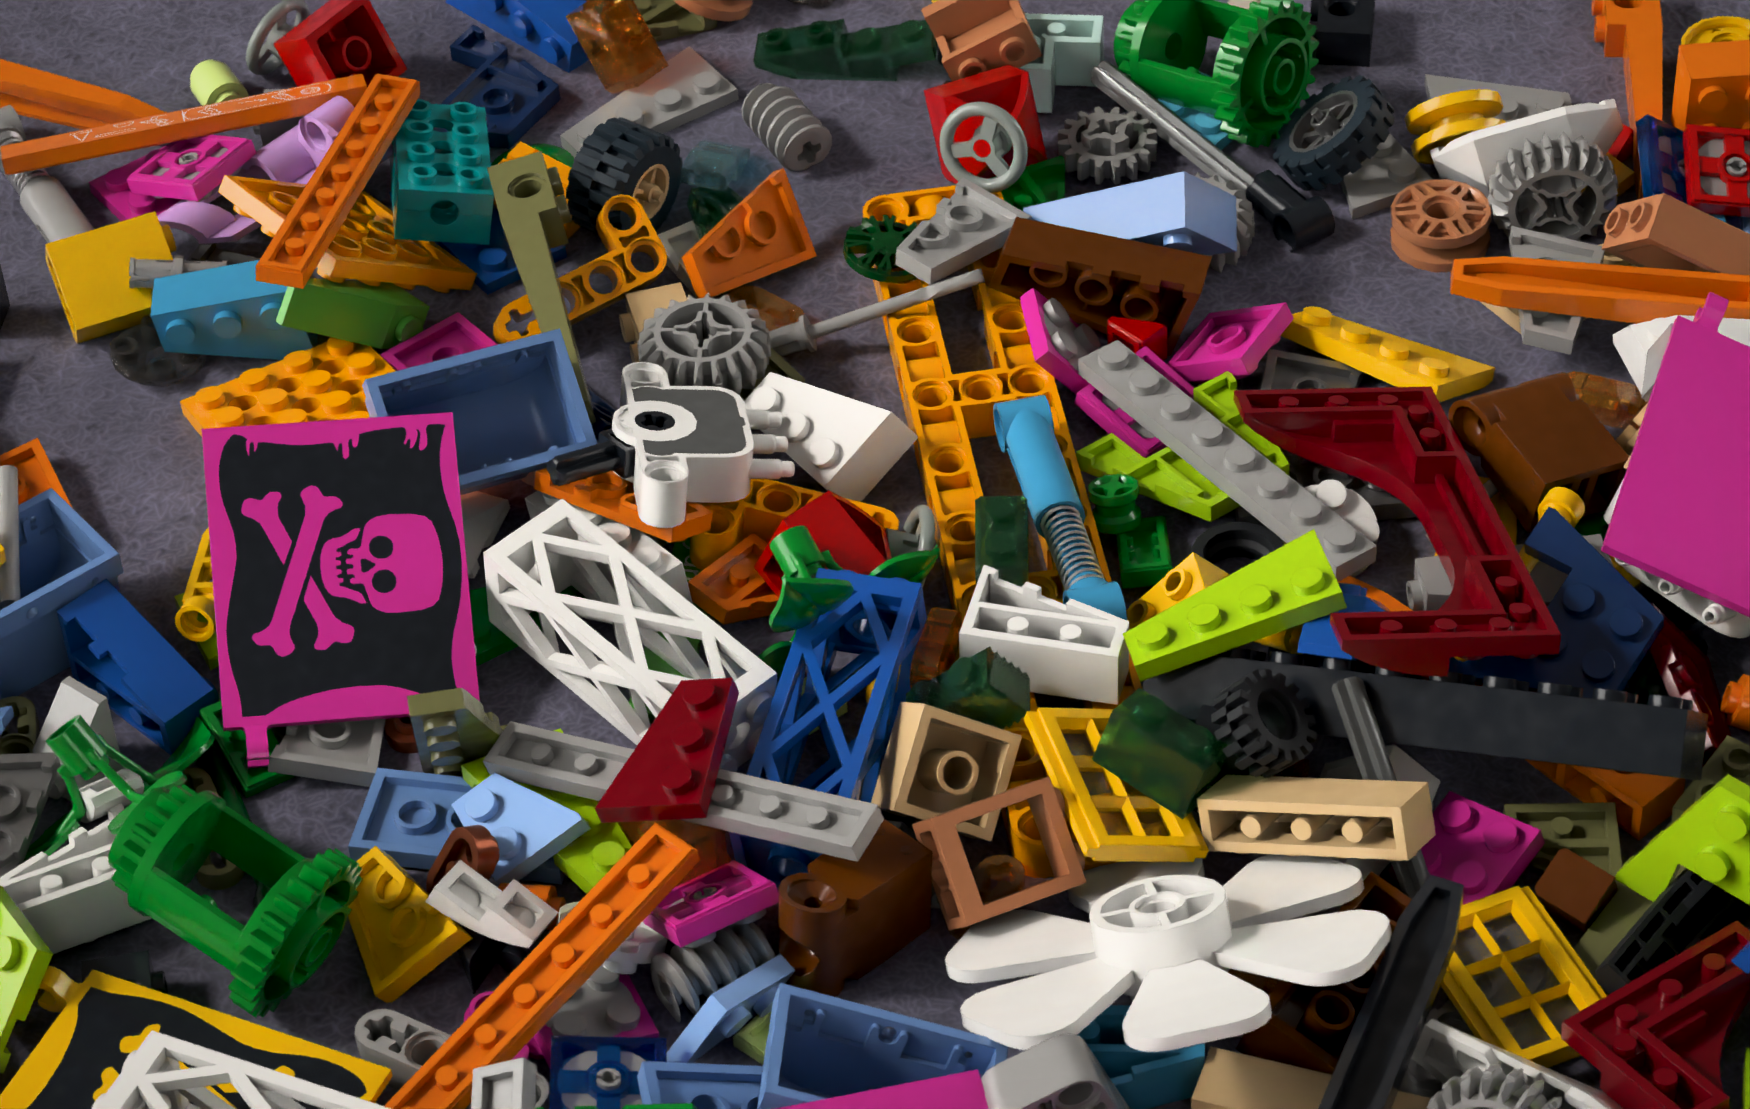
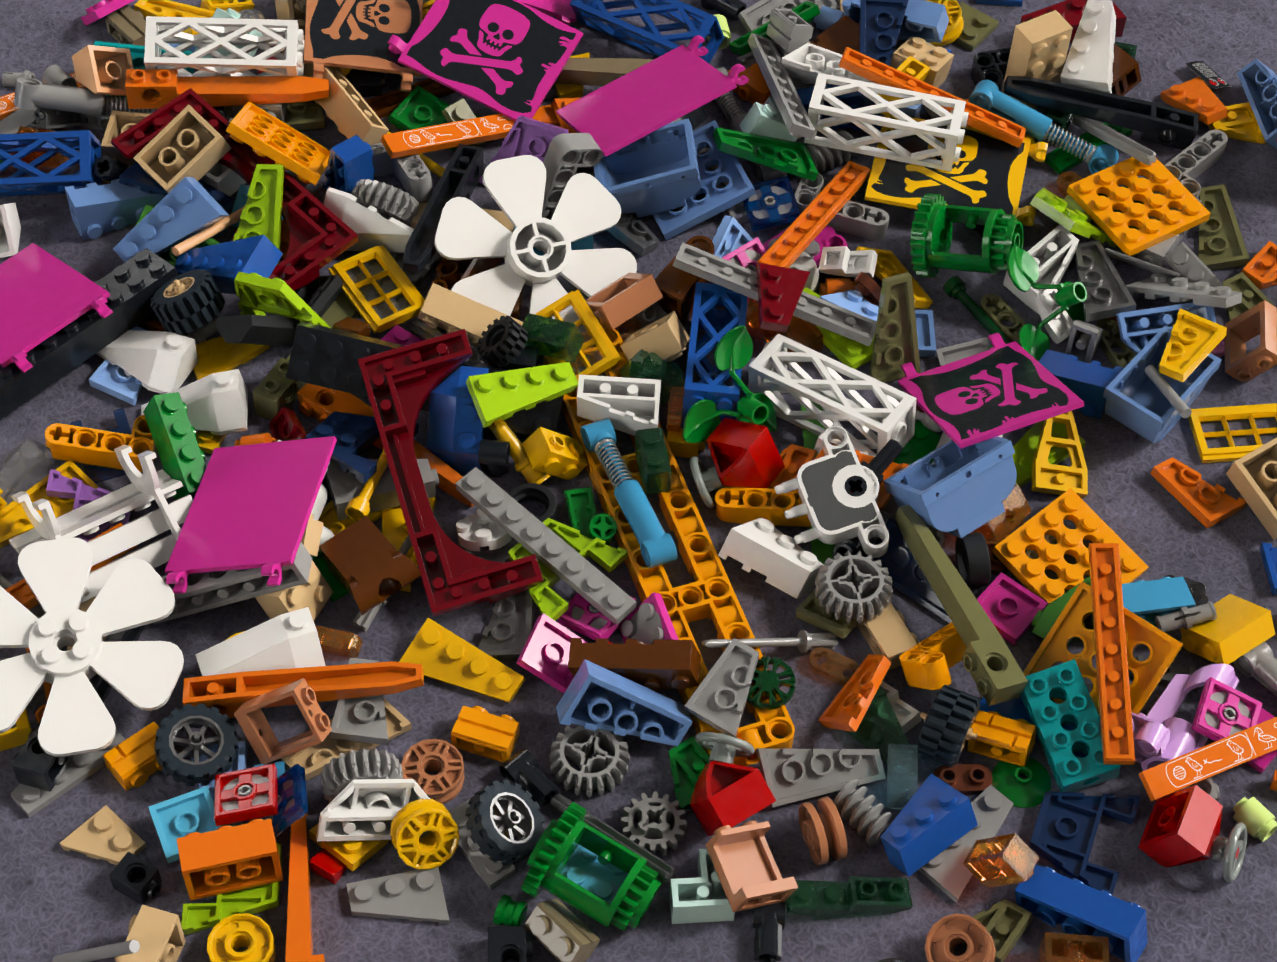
camera: 165 degrees right, 10 degrees up
(702, 86) = (927, 825): none -> blue wedge
(849, 177) = (815, 772): none -> light grey wing
(861, 93) = (823, 831): none -> nougat wheel
(1334, 66) = (510, 912): none -> green wheel
(1352, 263) = (485, 733): none -> light orange brick

